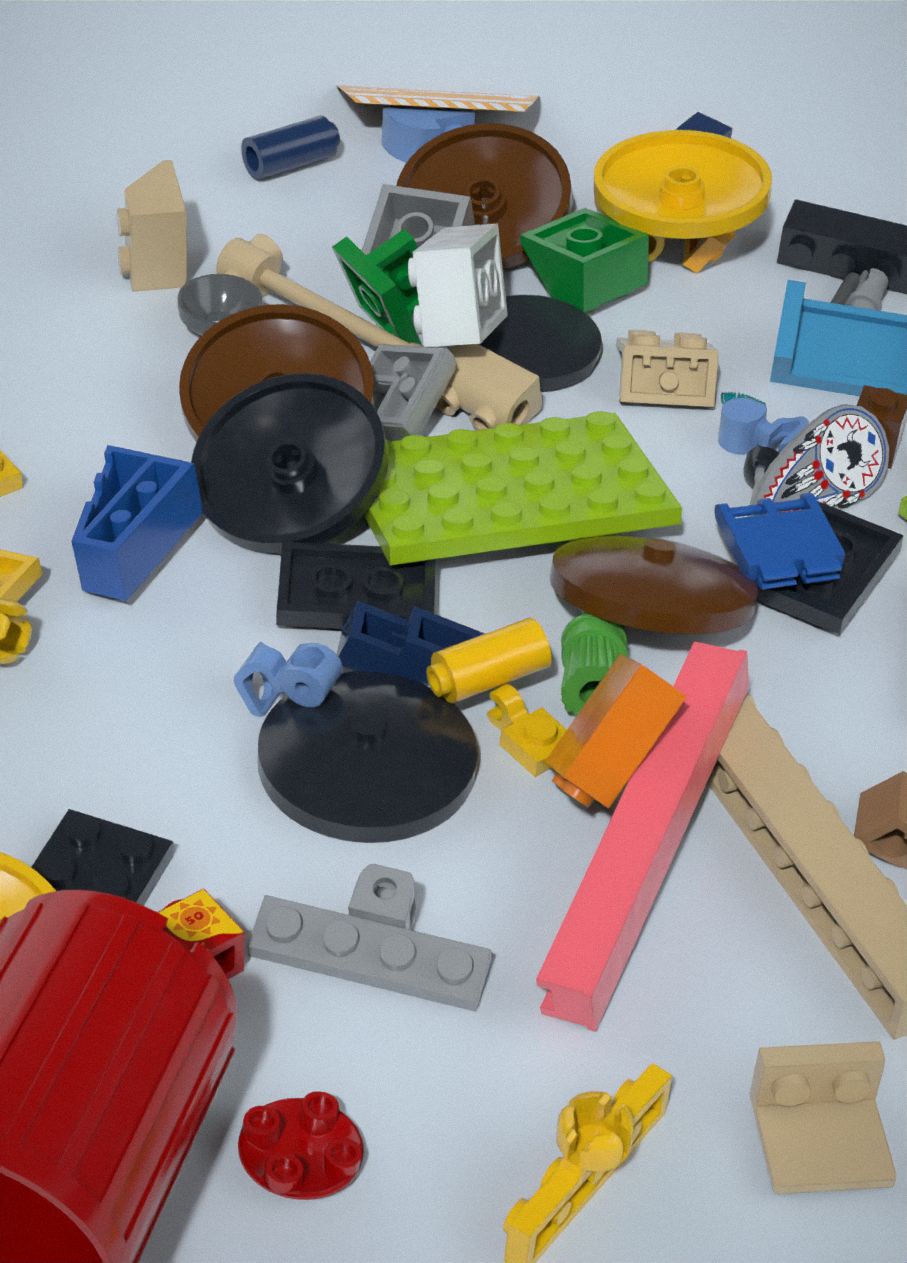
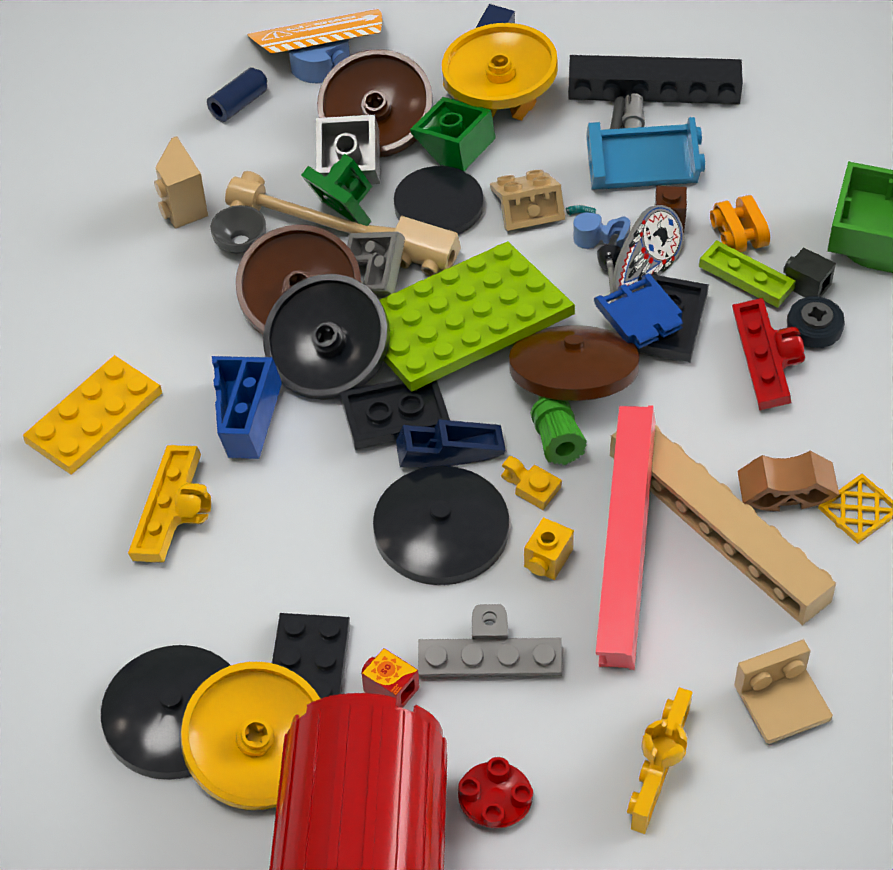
camera: 10 degrees left, 10 degrees up
(303, 677) = (390, 487): medium blue leg -> none
(458, 285) = (390, 184): white brick -> none
(489, 660) = (496, 445): yellow brick -> none
(520, 825) = (548, 548): none -> yellow brick
(613, 732) = (589, 478): orange brick -> none

